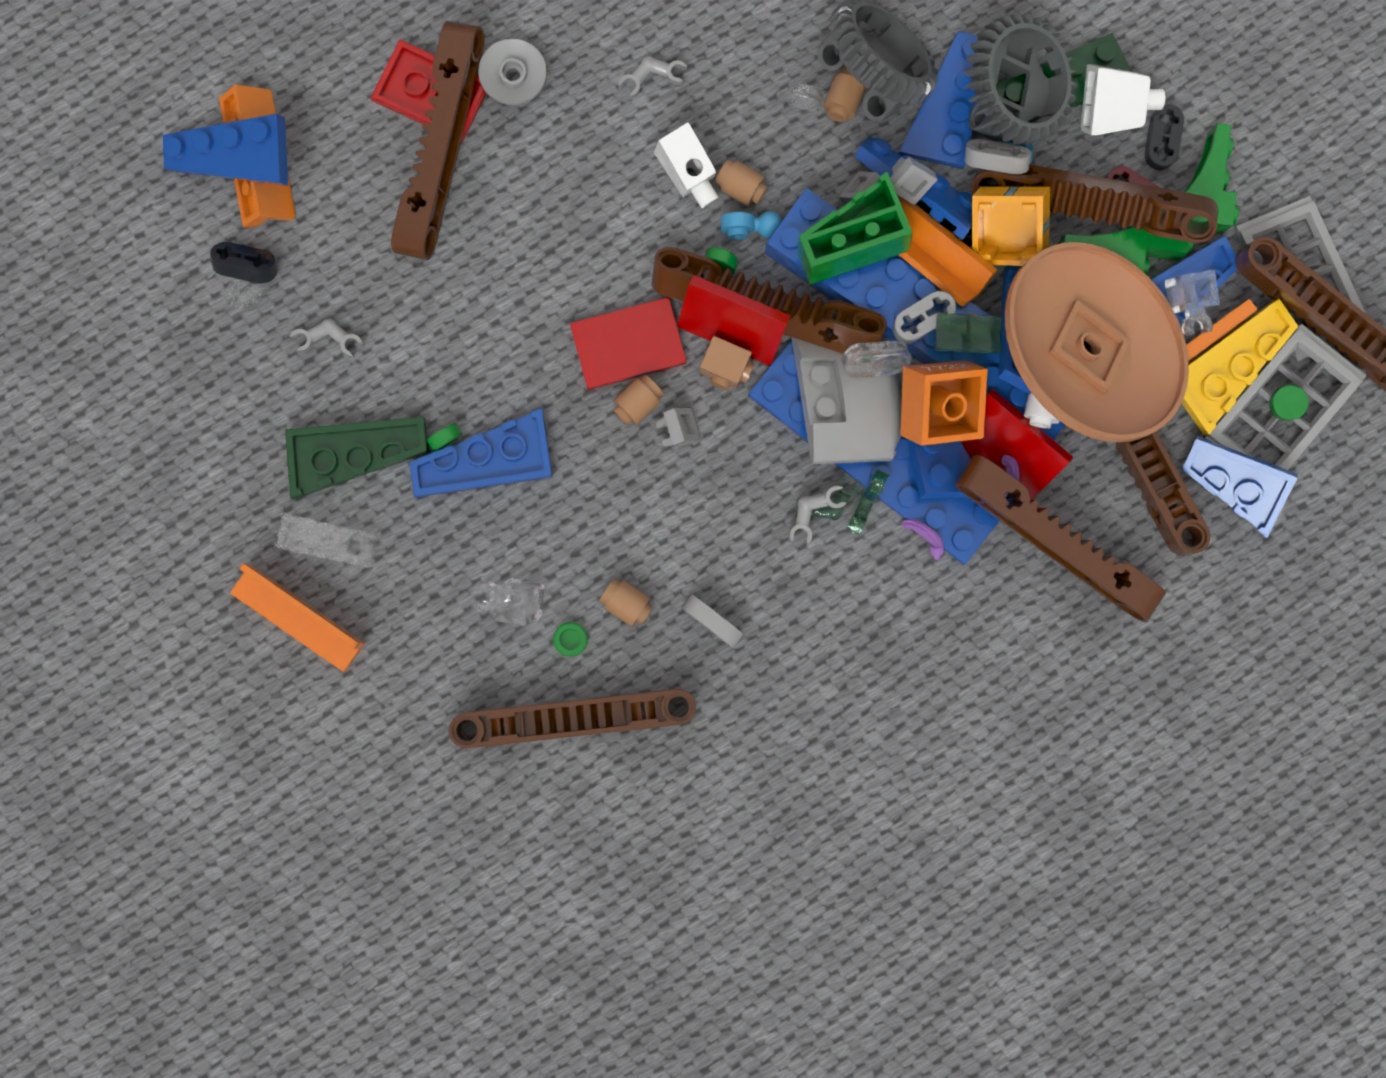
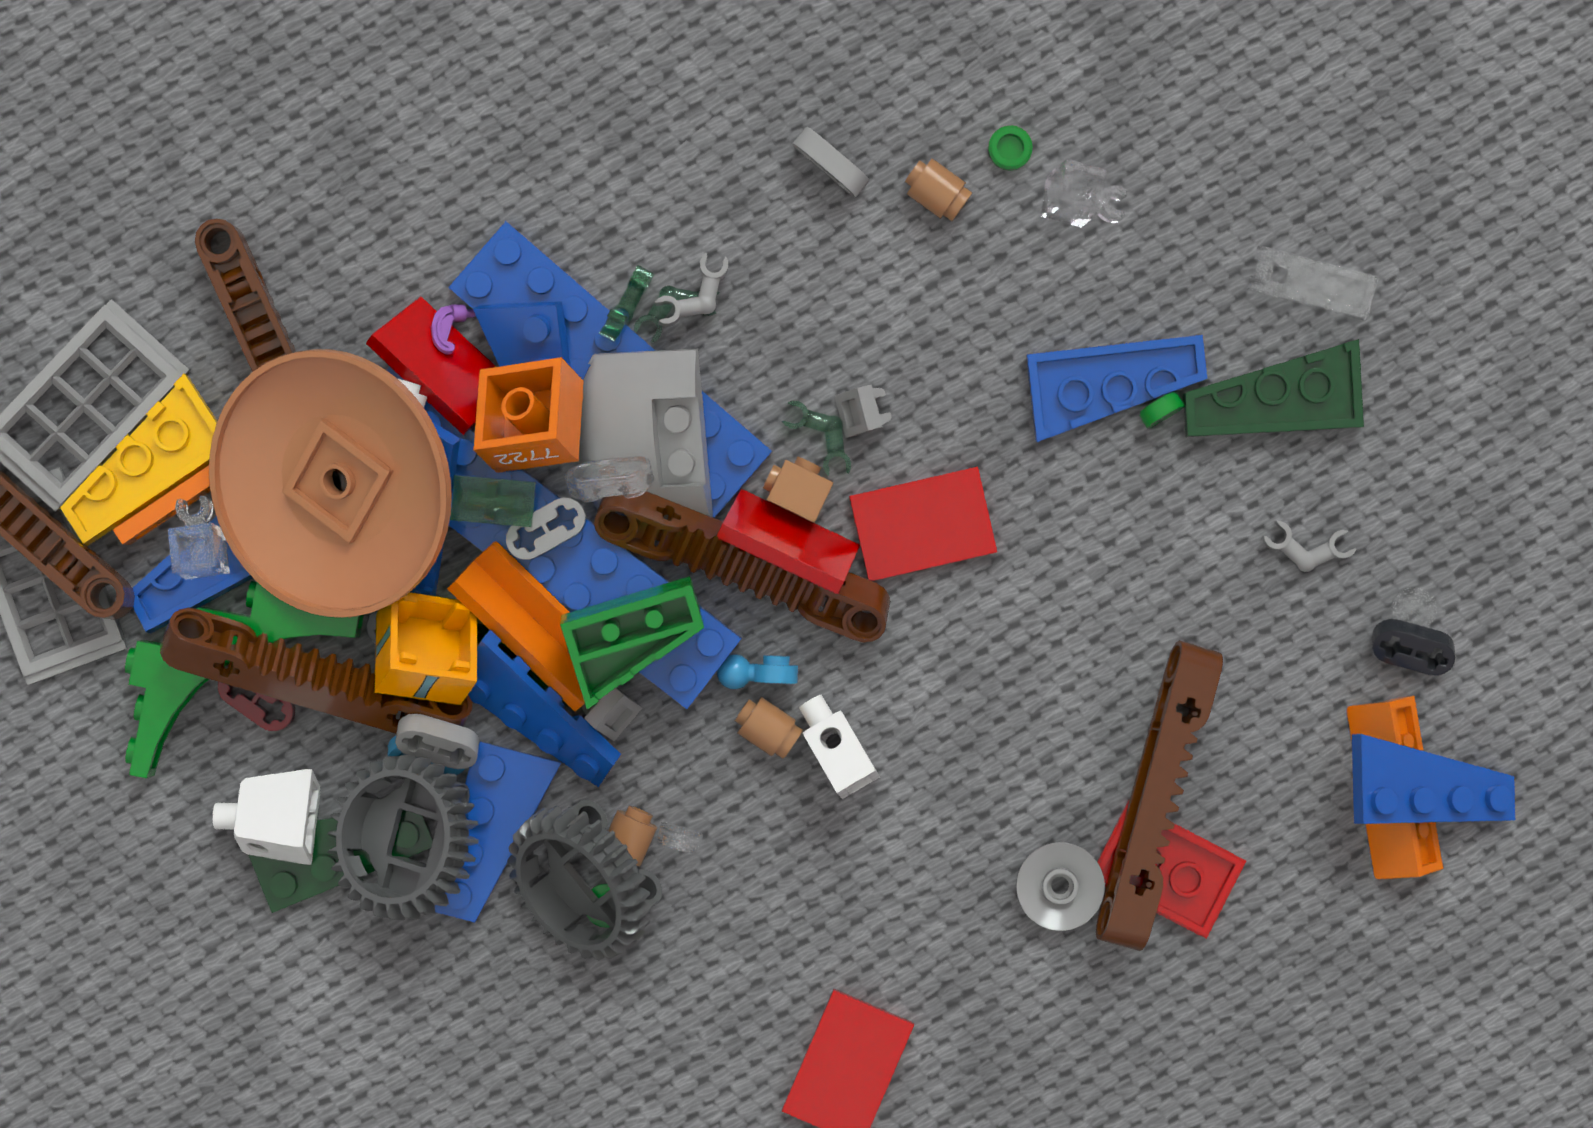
camera: 170 degrees left, 5 degrees up
(297, 617) = (1353, 189): orange panel -> none
(571, 718) = (1010, 46): reddish brown gear -> none
(637, 400) = (914, 446): medium nougat brick -> none
(651, 65) = (882, 892): light grey arm -> none
(701, 413) = (831, 426): none -> clear green arm
(723, 258) = (798, 626): green tile -> none
(912, 179) = (554, 706): light grey tile -> none
(928, 534) = (541, 246): medium lavender piece -> none
(1117, 582) = (475, 306): reddish brown gear -> none
(1171, 138) = (202, 767): black beam -> none
(1243, 482) = (142, 310): wing -> none
(1288, 403) = (80, 407): green tile -> none

